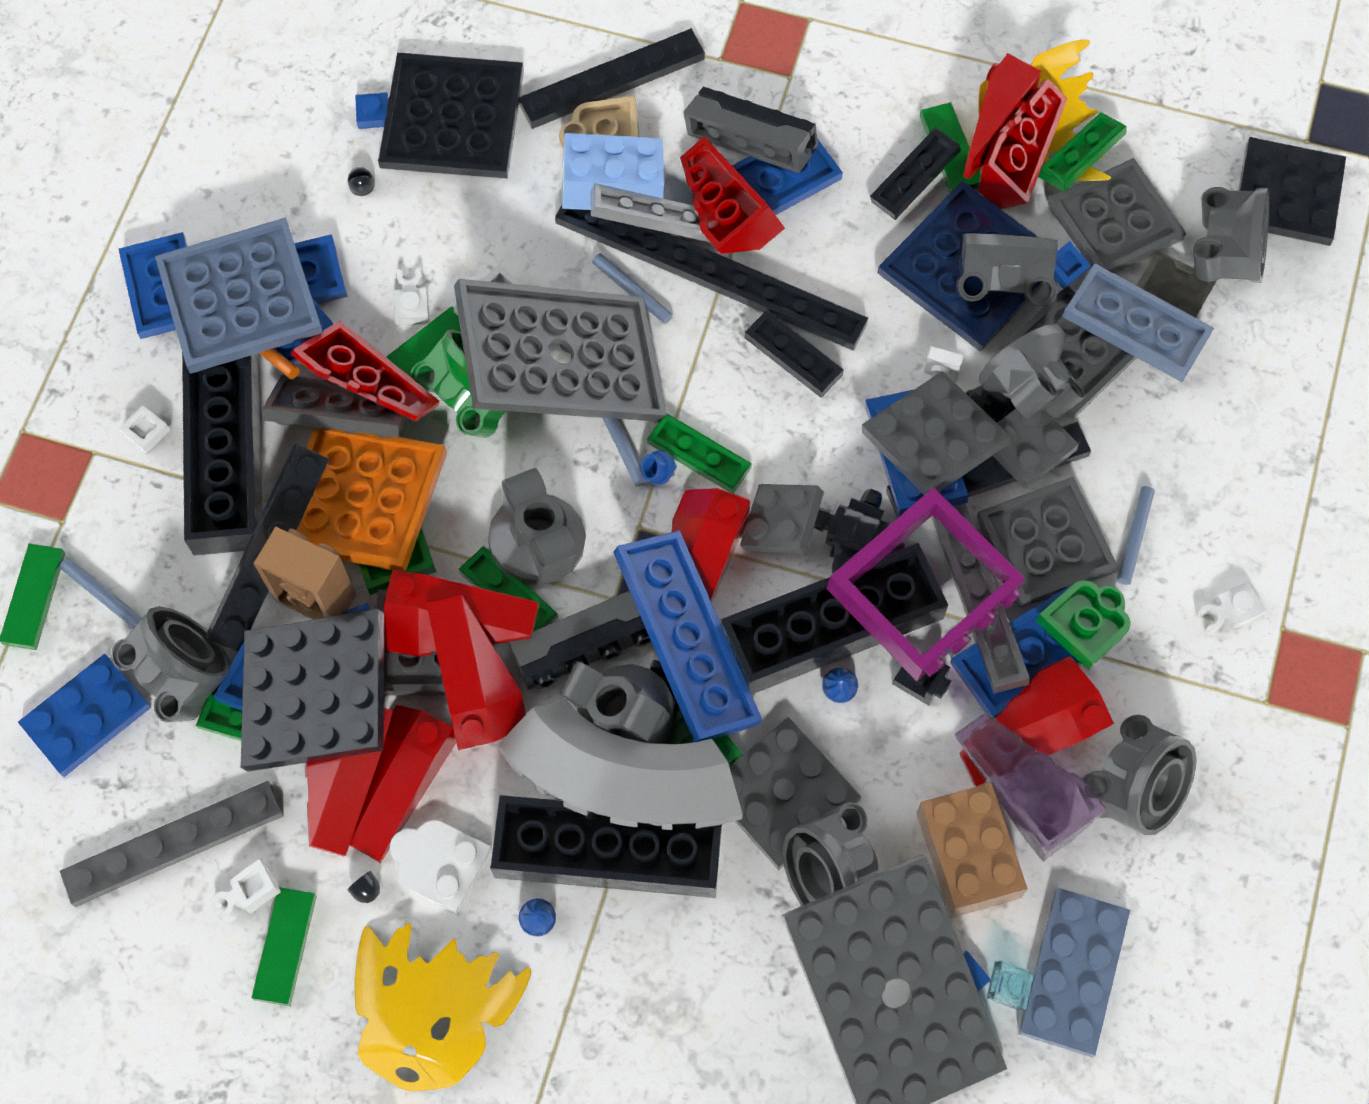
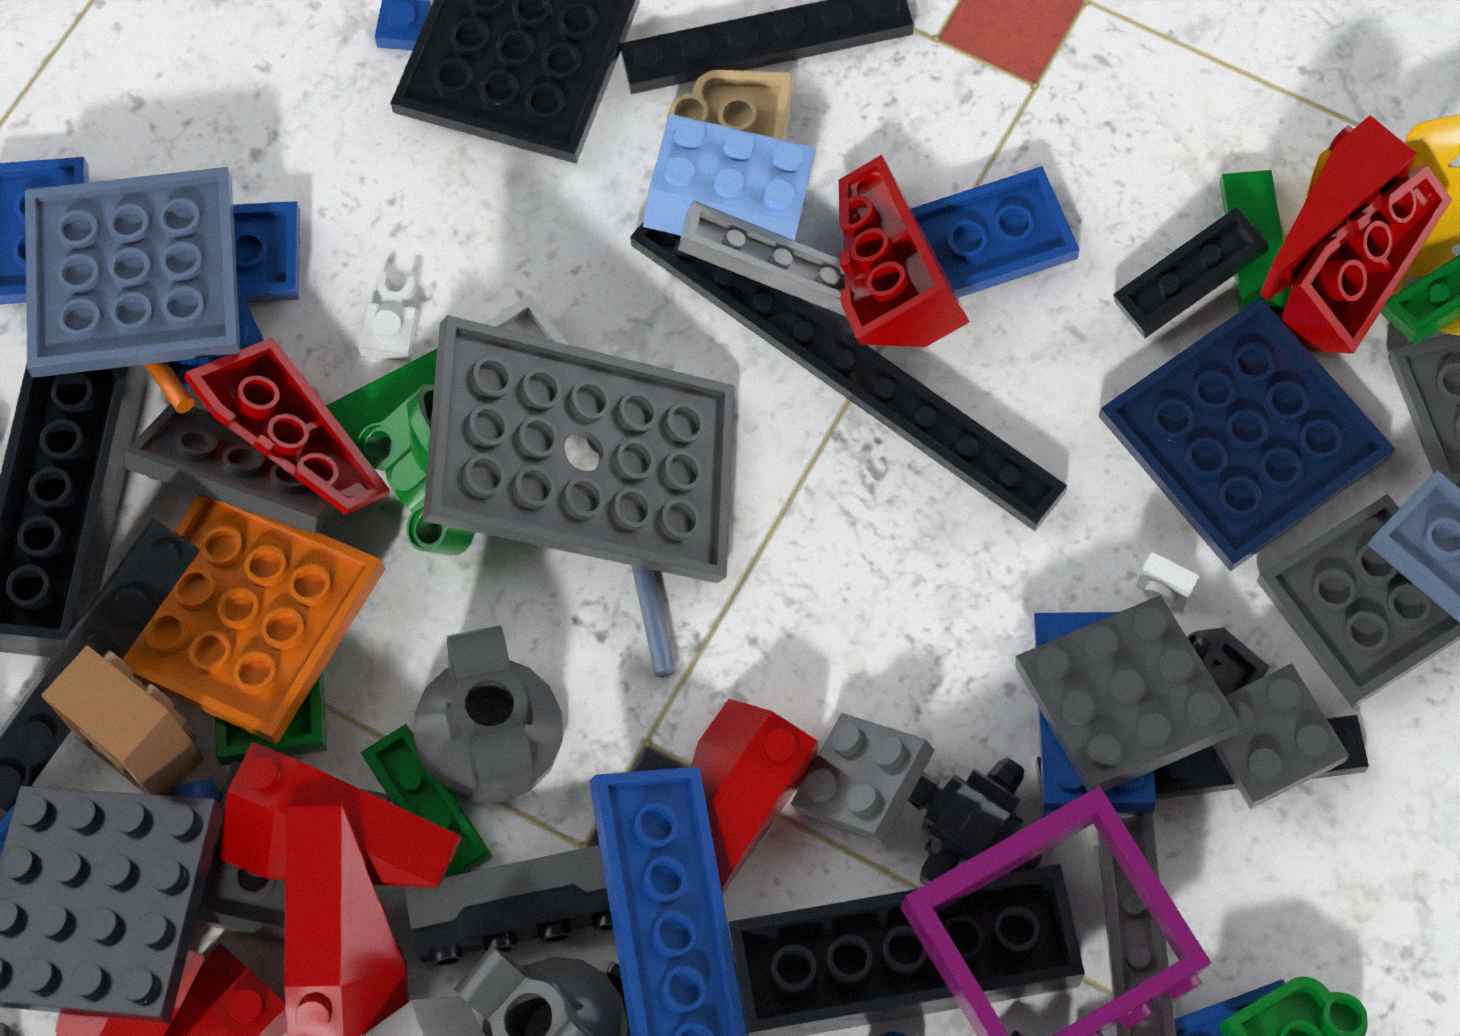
camera: 15 degrees right, 0 degrees up
(360, 181) = (358, 133): black hinge -> none
(631, 287) = (721, 367): sand blue bar -> none
(658, 467) = (694, 656): blue plate -> none
(699, 453) = (763, 645): green tile -> none
(751, 129) = (954, 158): dark grey piece -> none
(794, 353) = (941, 519): black plate -> none
(1008, 265) = (1299, 449): dark grey piece -> none
(1034, 374) = (1301, 635): dark grey piece -> none
(1048, 540) = (1268, 897): dark grey plate -> none
(1069, 265) = (1392, 463): blue plate -> none
(1135, 535) = (1410, 916): sand blue bar -> none

